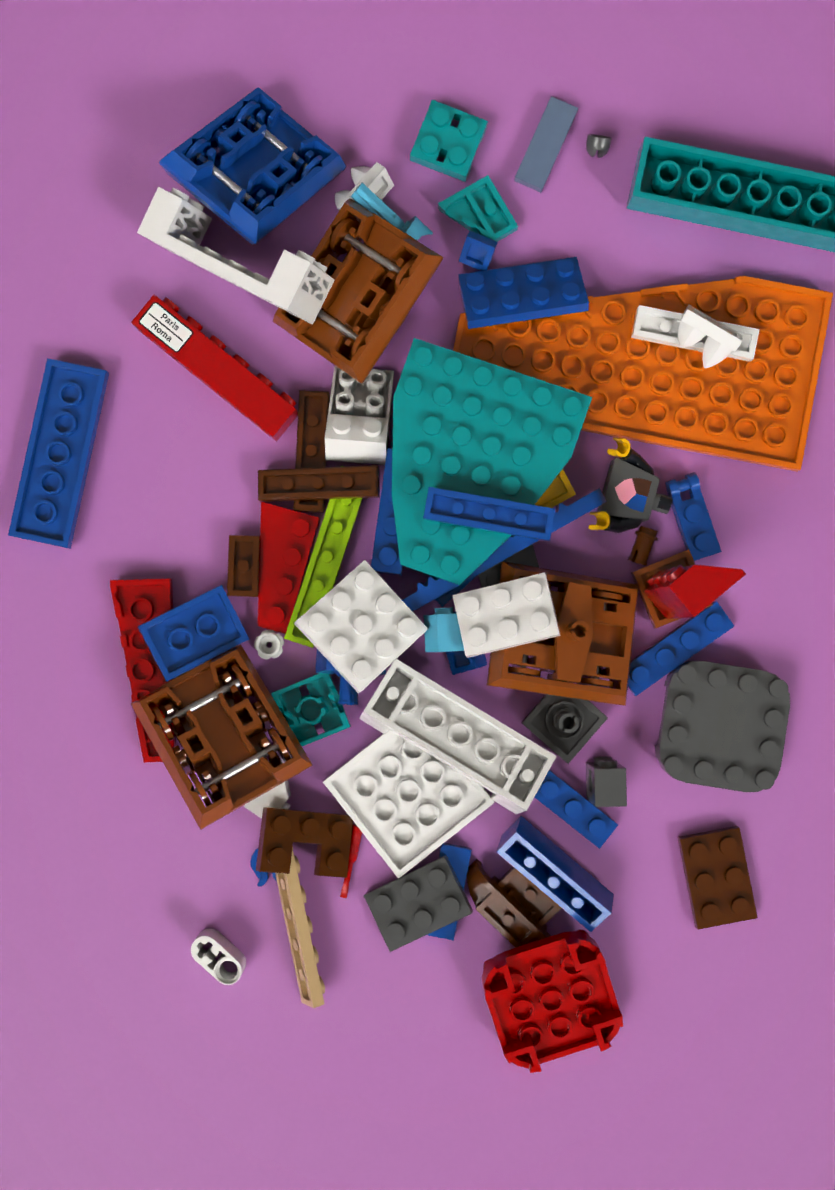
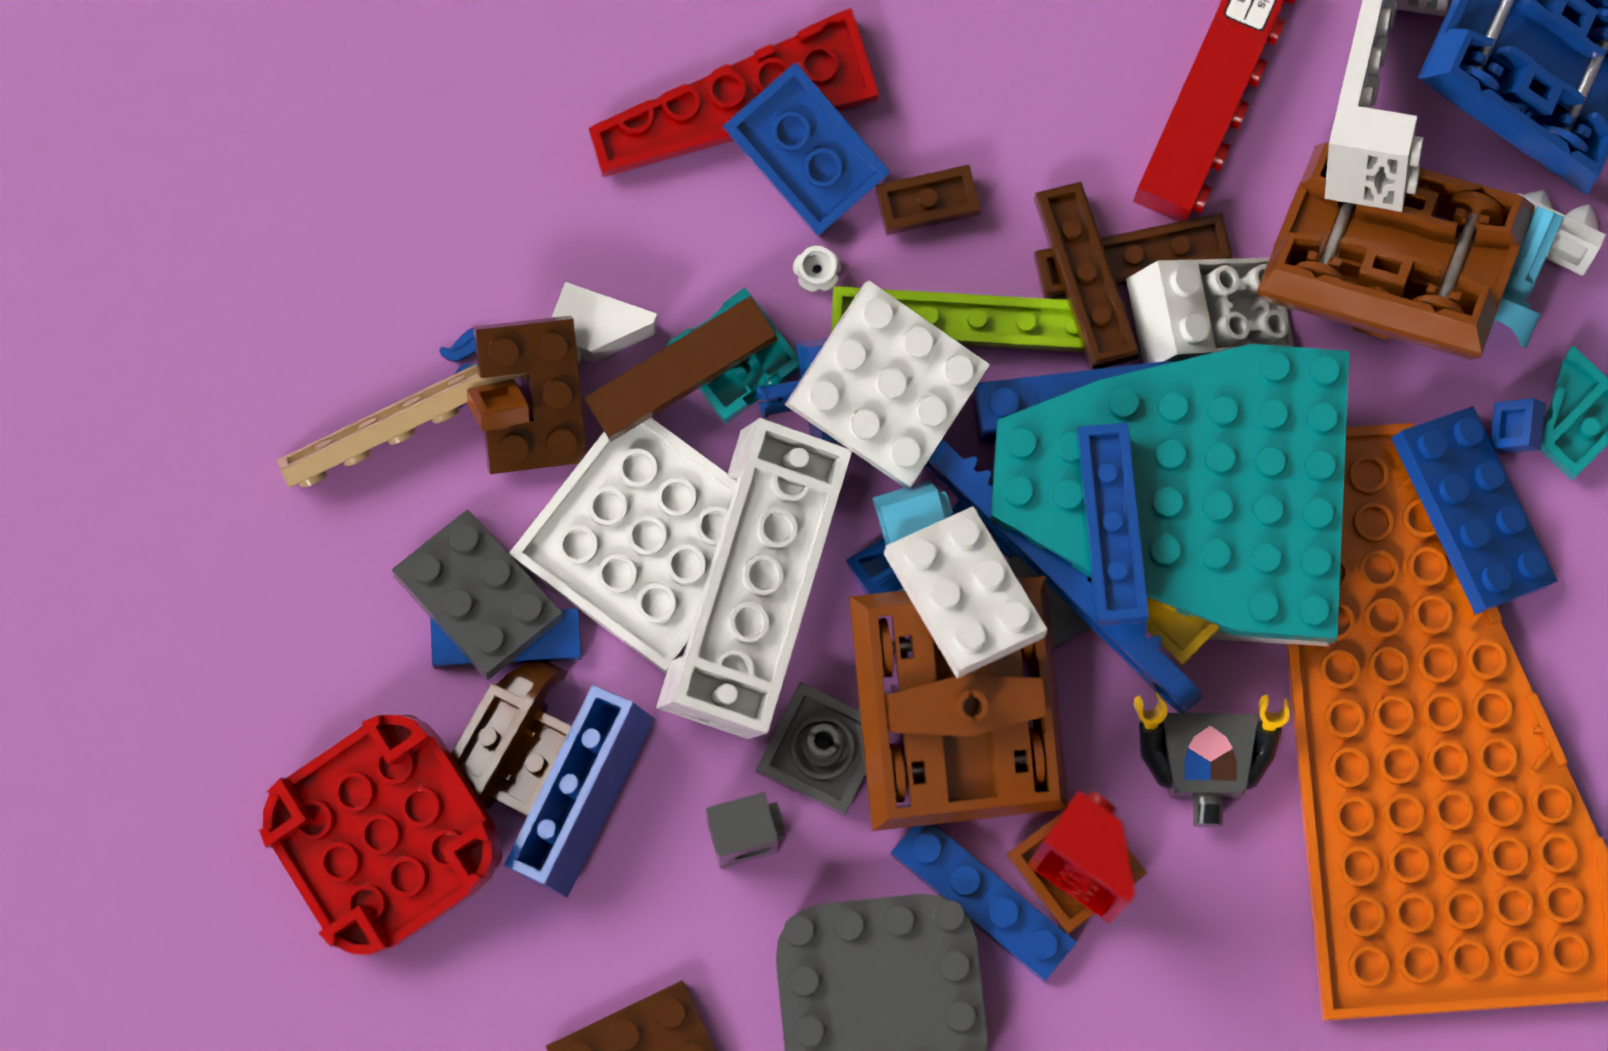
camera: 70 degrees right, 10 degrees down
(207, 960) = (309, 308): white beam -> none
(221, 736) = (664, 224): dark orange piece -> none
(283, 560) = (960, 255): red wing -> none
(308, 865) = (498, 405): none -> dark orange plate
(310, 731) = (681, 368): none -> reddish brown tile
(354, 849) = (524, 478): red piece -> none
(575, 810) = (684, 800): blue plate -> none
(643, 545) = (1135, 801): reddish brown pin -> none
(663, 326) = (1489, 789): white plate -> none
(693, 517) = (1198, 873): blue plate -> none
(720, 338) = (1490, 821): white tile -> none

